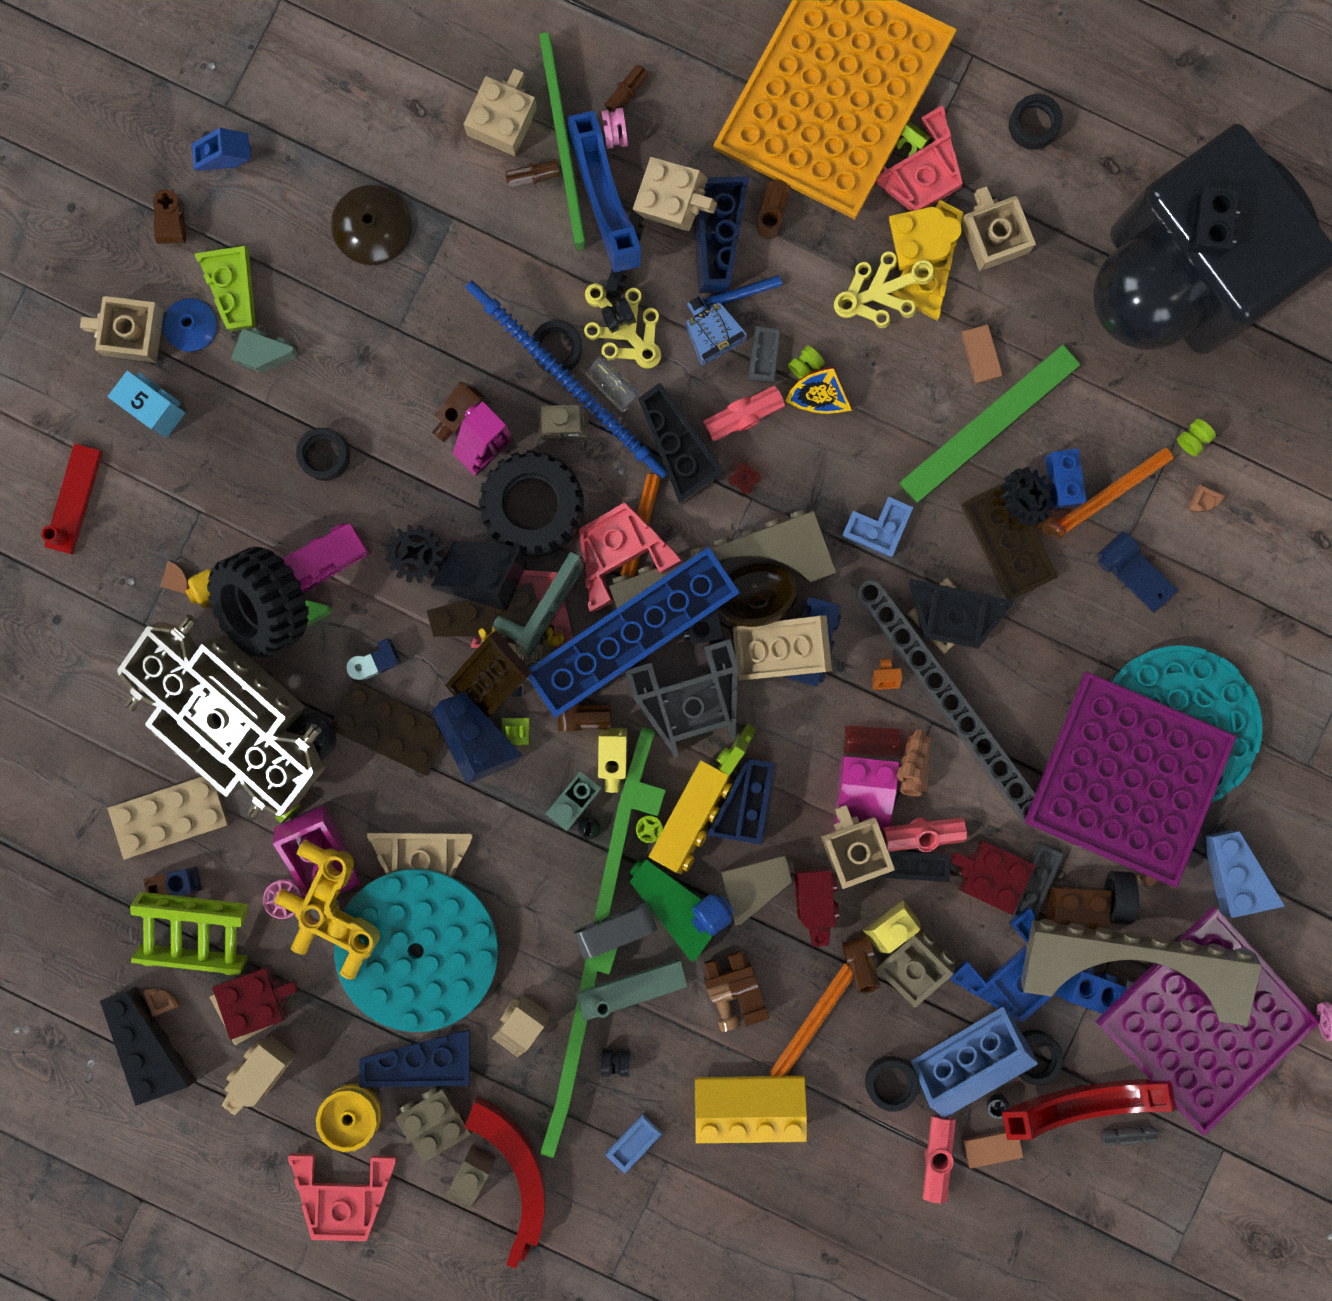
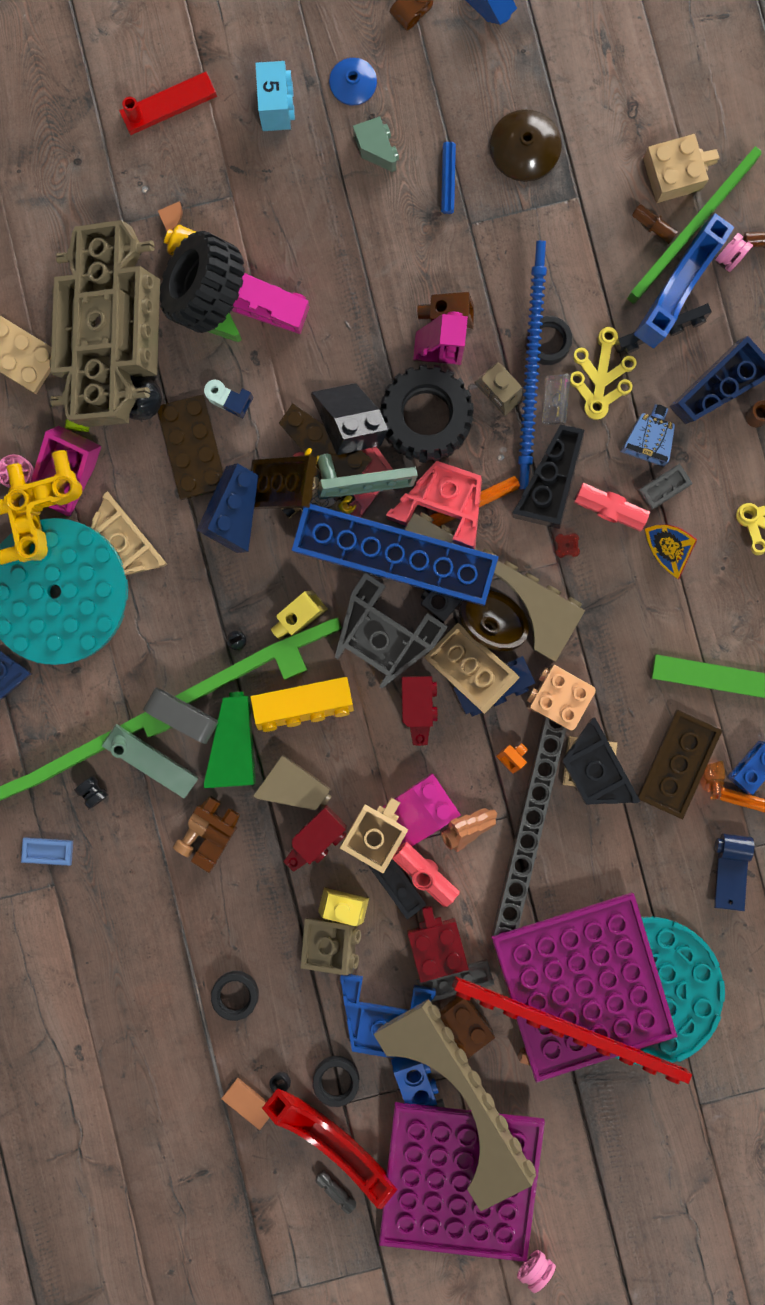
camera: 55 degrees right, 0 degrees up
(126, 329) = (314, 40): tan hinge -> none
(231, 283) = (405, 83): lime wing -> none
(302, 454) = (336, 226): black tyre -> none
(343, 314) = (448, 177): none -> blue axle
(403, 560) = (315, 361): black gear -> none
(517, 730) = (262, 534): lime tile -> none
(521, 1025) = (63, 704): tan wedge -> none
(573, 801) = (245, 613): sand green slope -> none
(585, 717) = (308, 570): reddish brown piece -> none
(623, 312) = (611, 366): black wheel -> none
(649, 832) = (267, 680): lime wheel -> none
(672, 194) = (722, 328): tan hinge -> none
(712, 914) = (247, 772): blue head -> none
(730, 757) = (365, 694): lime wing -> none
(744, 291) = (697, 437): blue bar -> none
(748, 804) = (344, 735): dark blue wedge -> none
(750, 1109) = (135, 911): yellow slope -> none
(776, 721) = (418, 707): none -> dark red hinge
(806, 363) = (684, 520): lime wheel -> none
(813, 1022) = (232, 906): orange axle -> none
(860, 958) = (302, 902): reddish brown piece -> none
(869, 593) = (561, 697): none -> light nougat bracket
(872, 740) = (460, 784): clear red hinge -> none
(881, 534) = (607, 671): medium blue plate -> none
(938, 1175) = (198, 1080): coral piece -> none
(973, 1063) = (295, 1040): medium blue slope -> none
(1027, 496) = (721, 751): black gear -> none
(1123, 896) = (498, 1050): black tyre -> none
(1167, 817) = (580, 1035): none -> red plate
(1237, 876) = (580, 1119): medium blue wedge -> none

